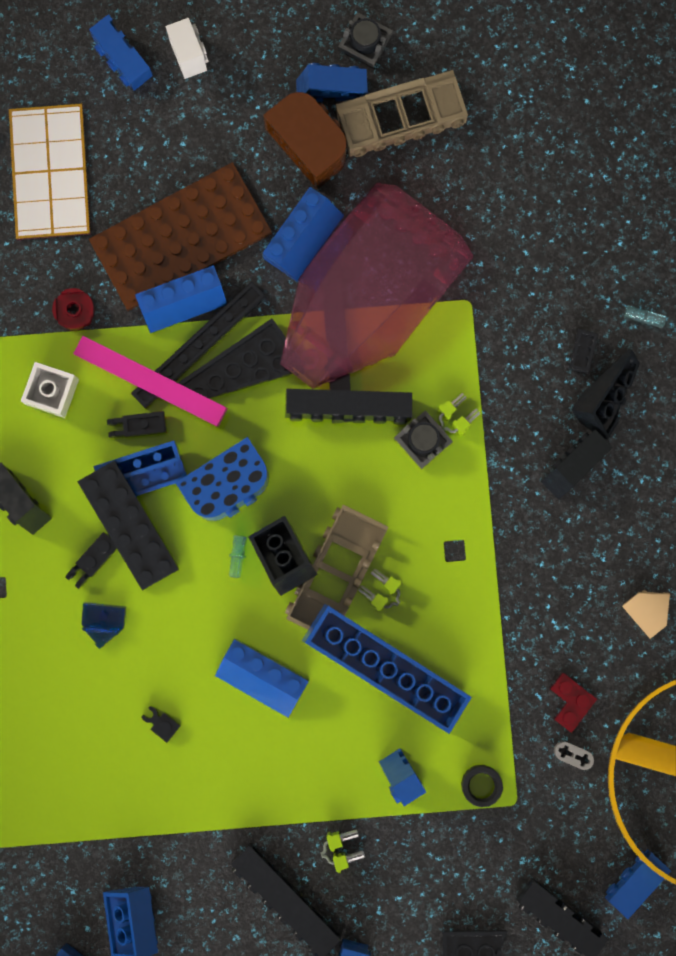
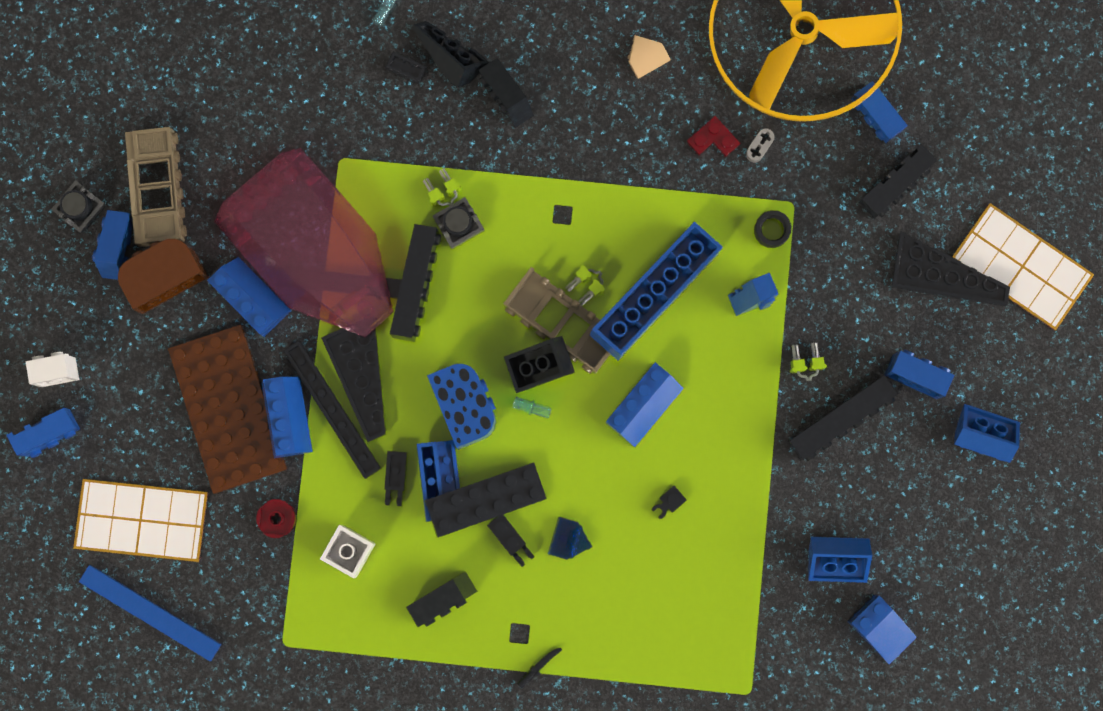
camera: 75 degrees left, 0 degrees up
(150, 381) = (357, 458): dark pink tile -> none

